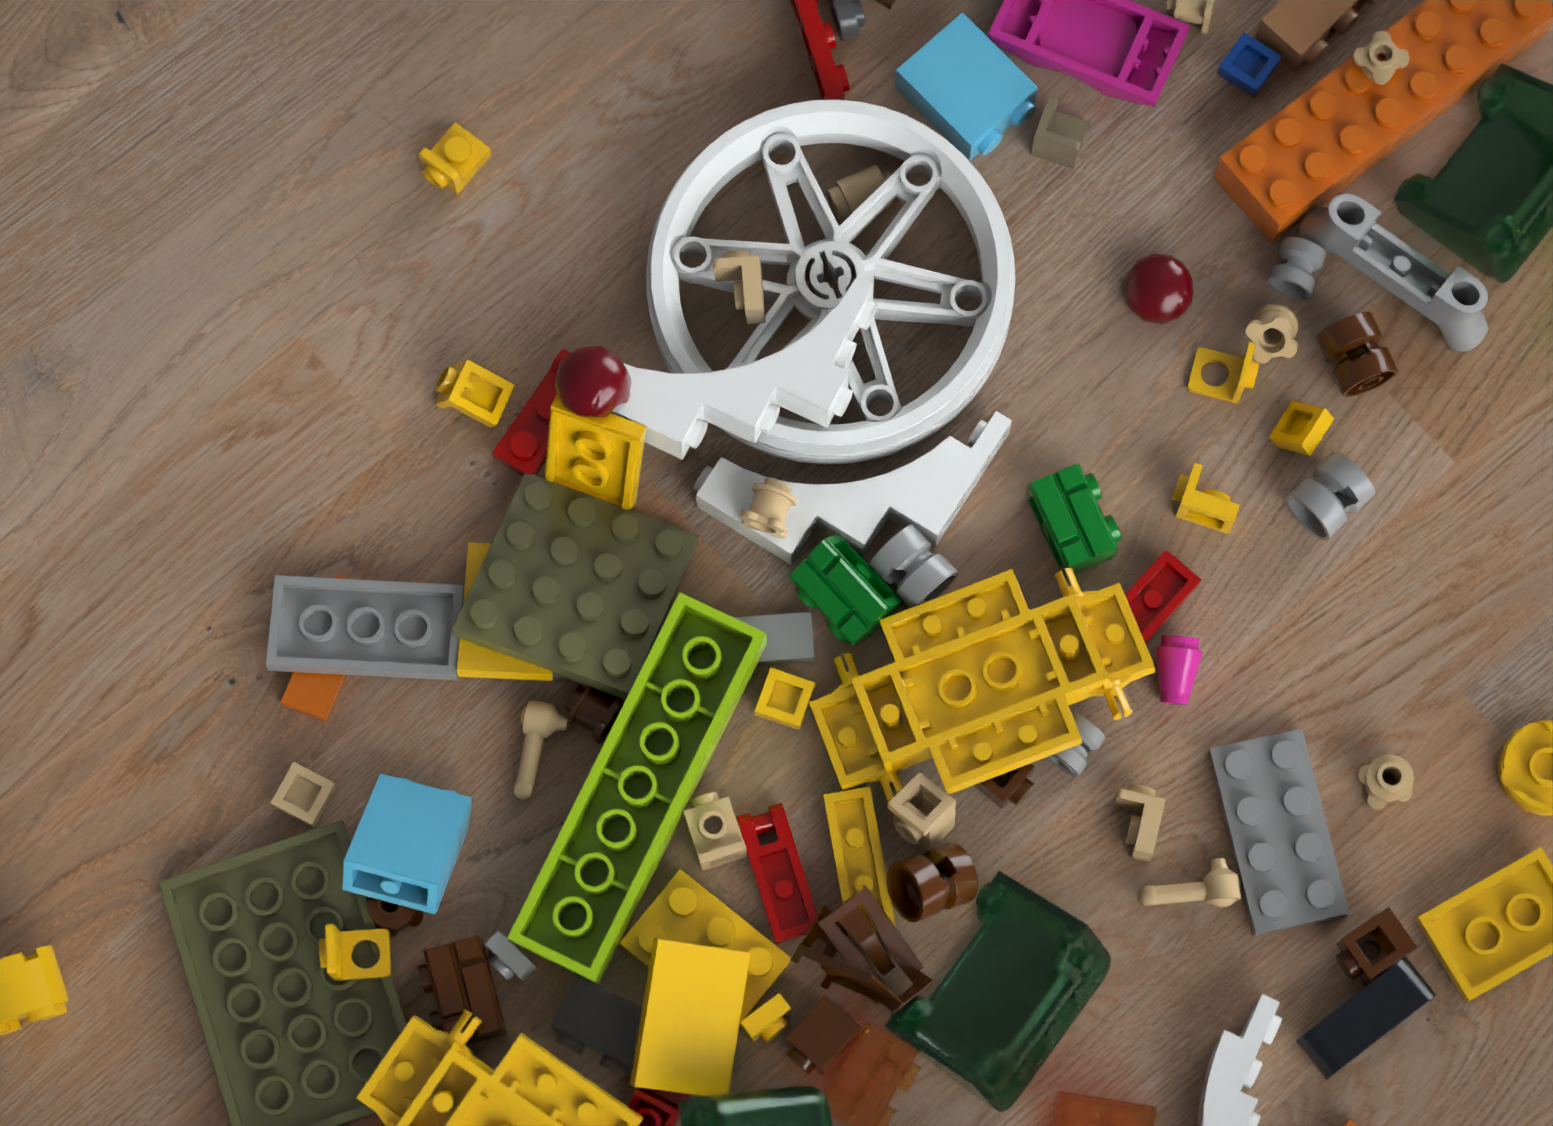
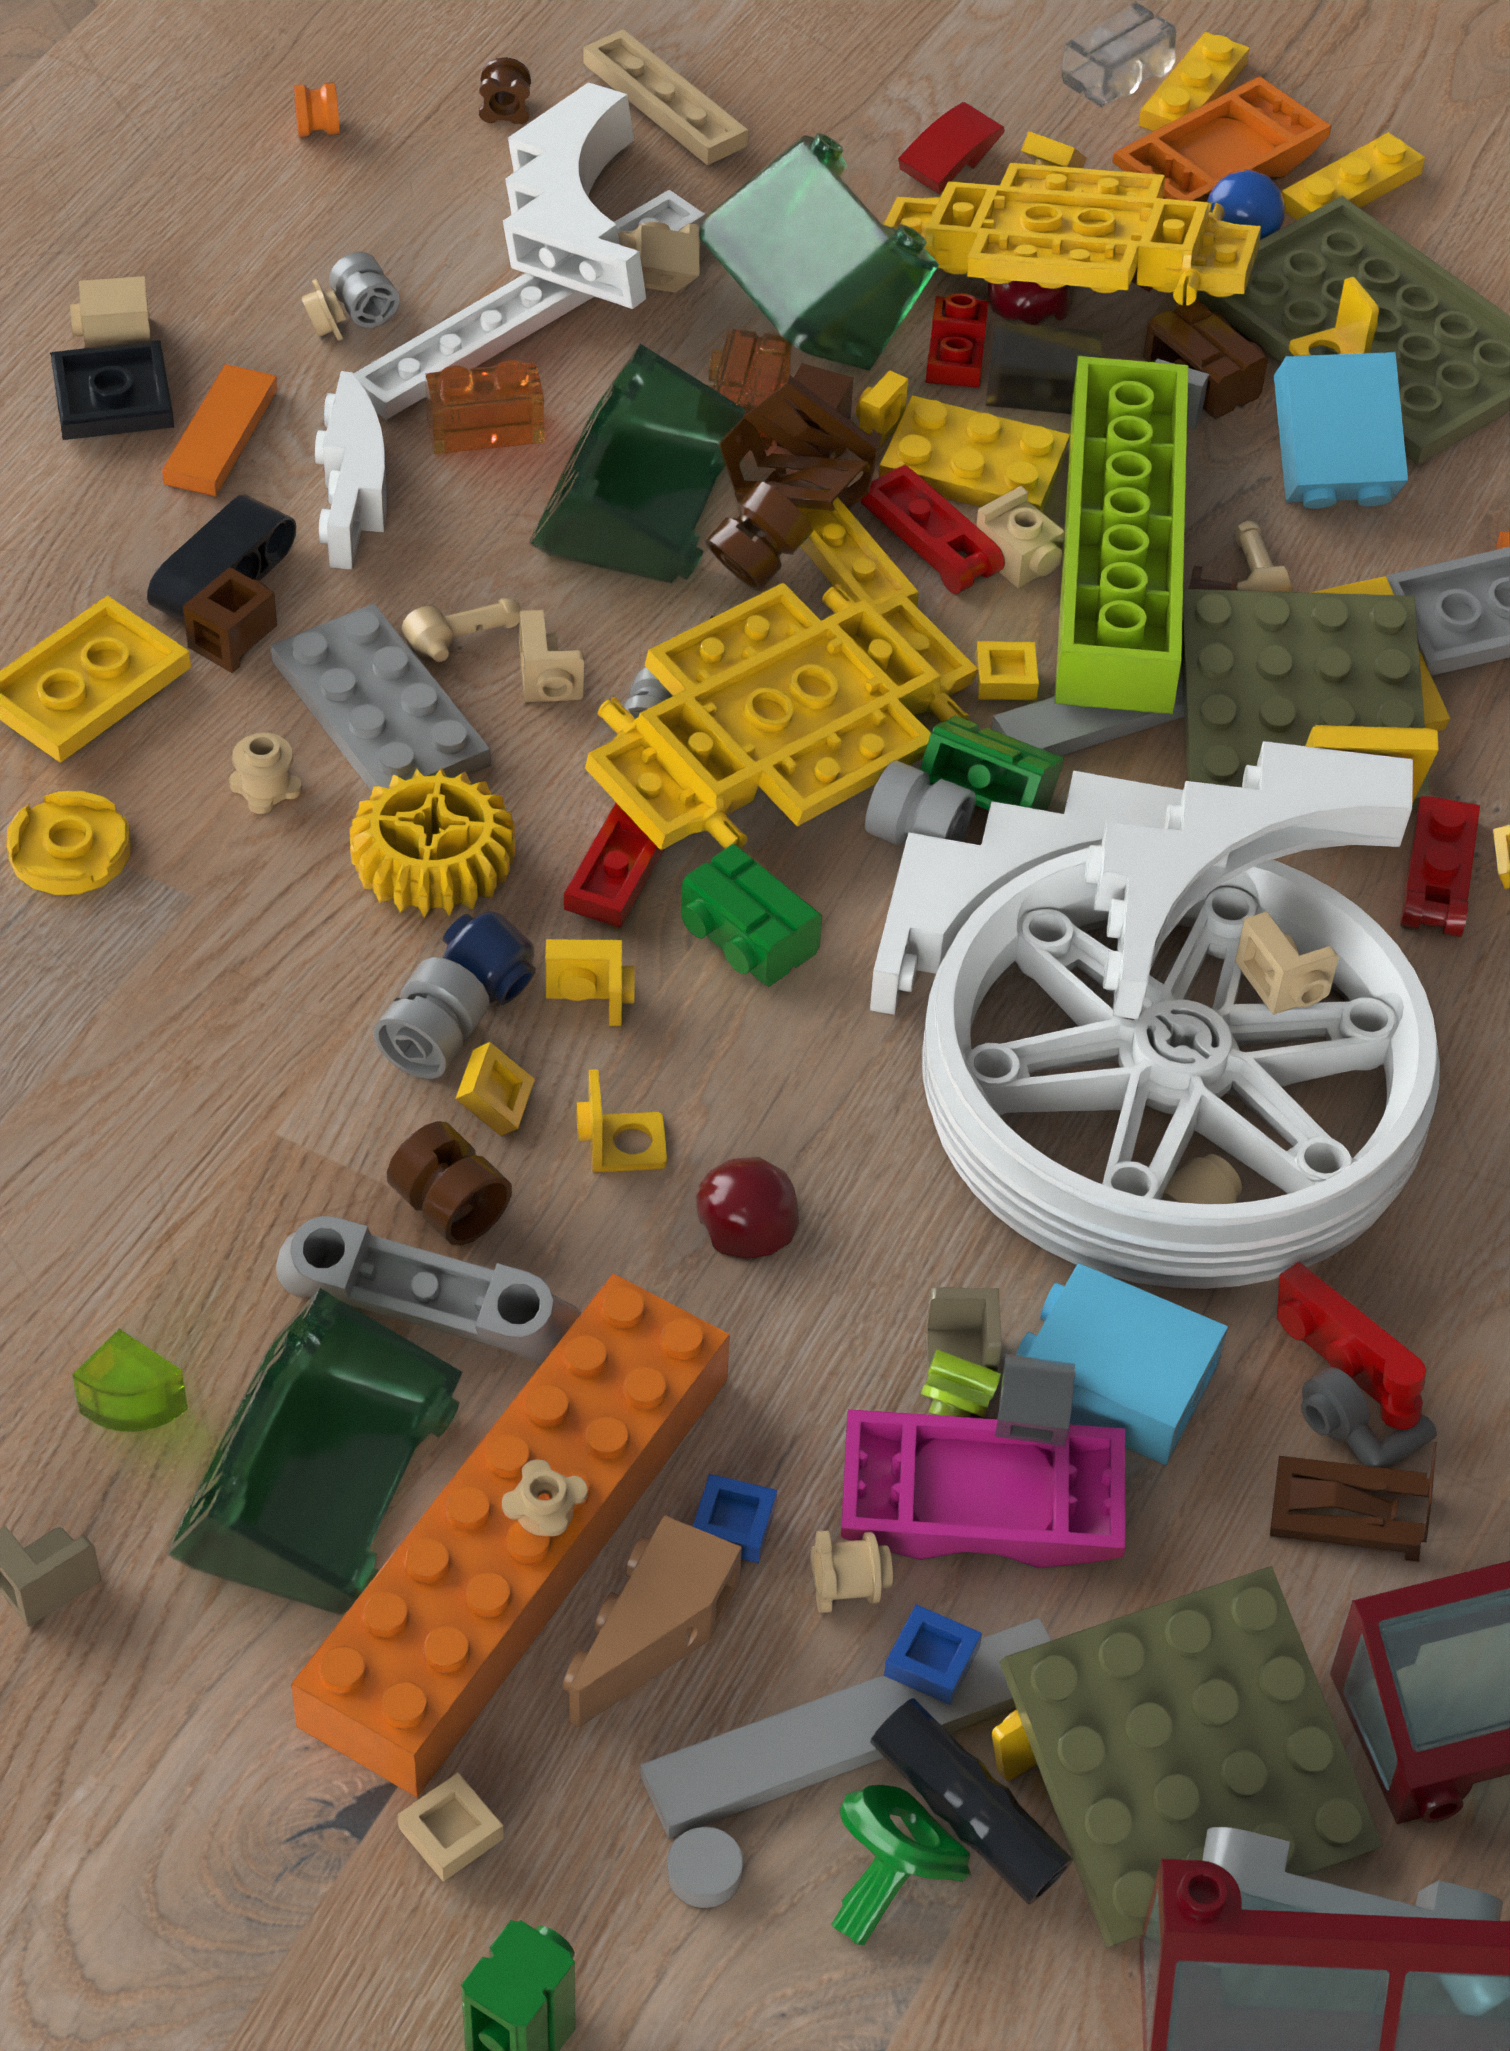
camera: 155 degrees right, 25 degrees down
(303, 794) = (1475, 467): tan plate -> none
(592, 381) = (1403, 759): dark red hair -> none
(690, 1018) = (962, 365): yellow tile -> none
(769, 508) = (1122, 777): tan brick -> none
(917, 818) = (806, 573): tan brick -> none
(1045, 47) = (1035, 1400): none -> dark grey brick
(1079, 100) = (959, 1386): none -> lime plate
(1177, 667) = (559, 814): dark pink cone -> none
(1270, 341) = (572, 1181): tan brick -> none
(1273, 540) = (492, 952): none -> dark blue head
(1296, 268) = (570, 1263): light grey wheel -> none
(1302, 672) = (432, 842): none -> yellow gear

